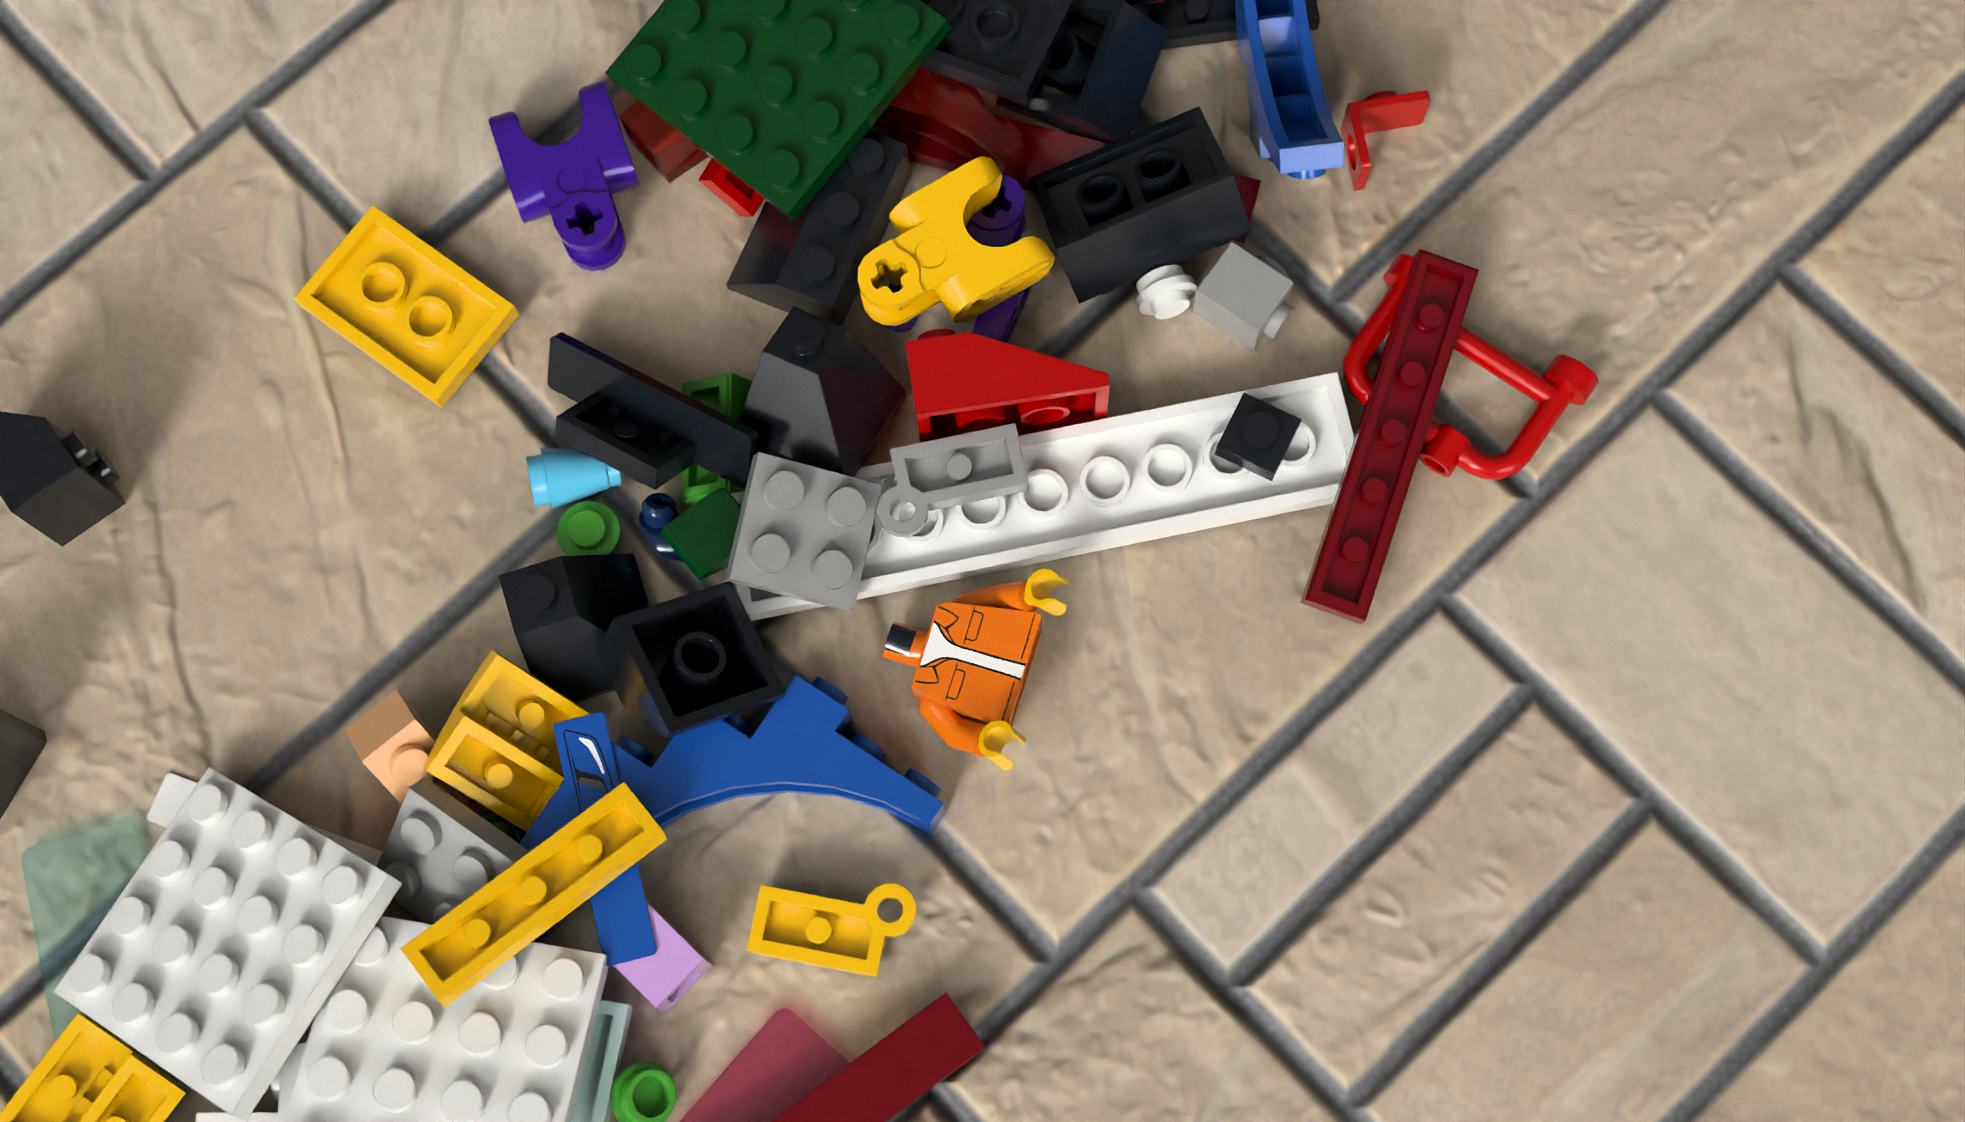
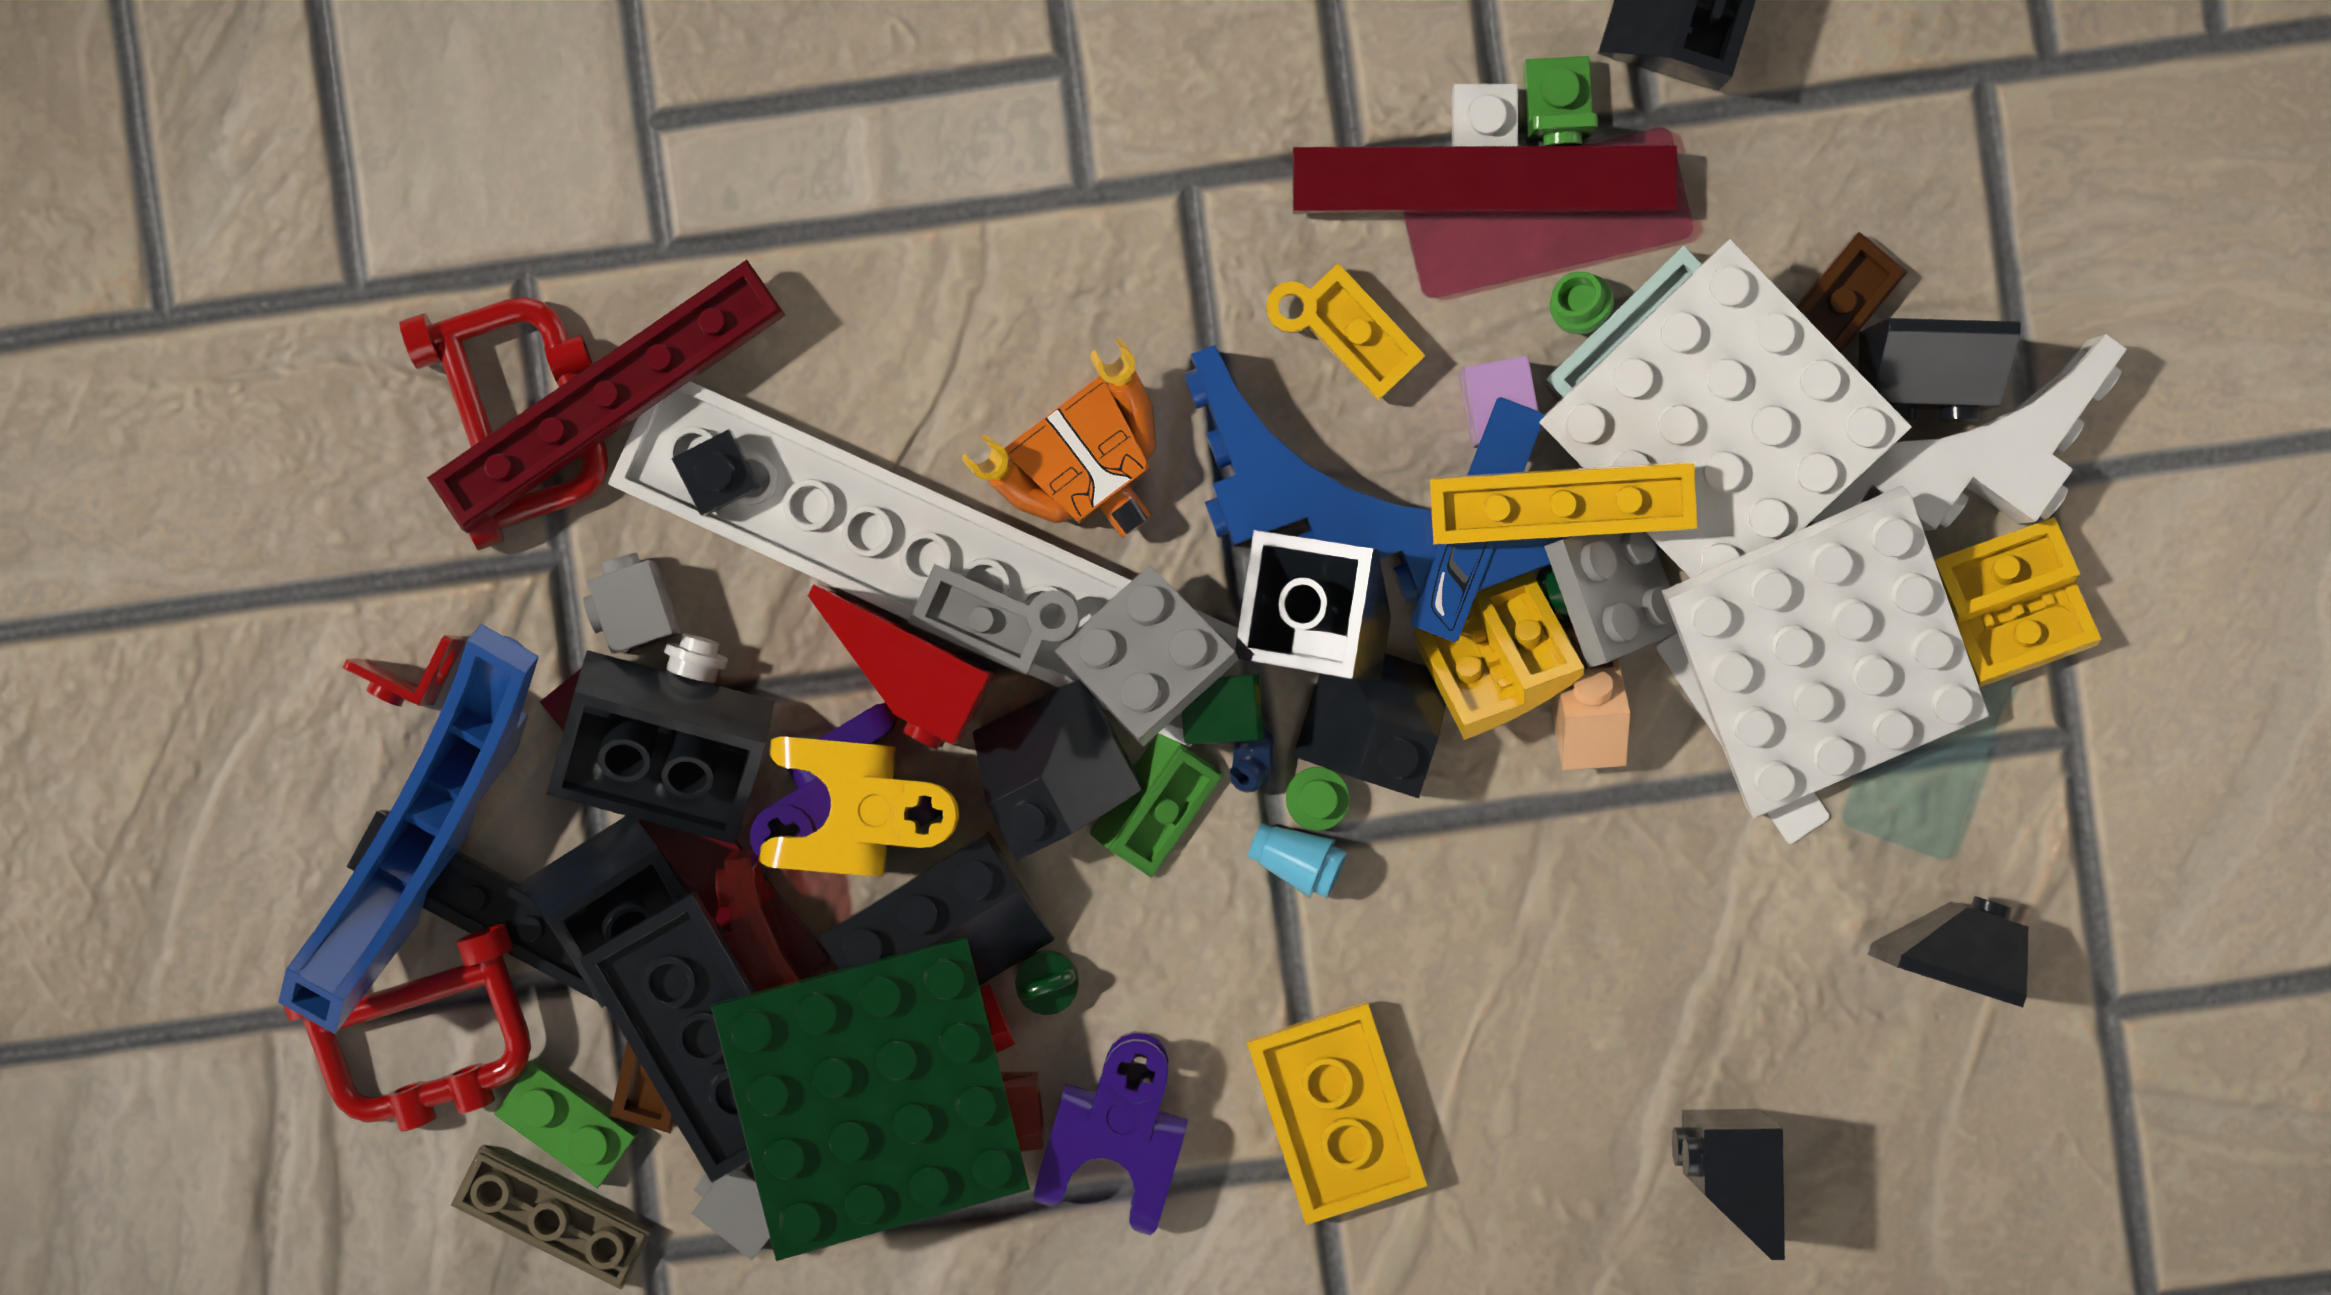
camera: 145 degrees left, 15 degrees up
(641, 421) = (1215, 854): black bracket -> none
(708, 248) = (1047, 982): none -> dark green tile

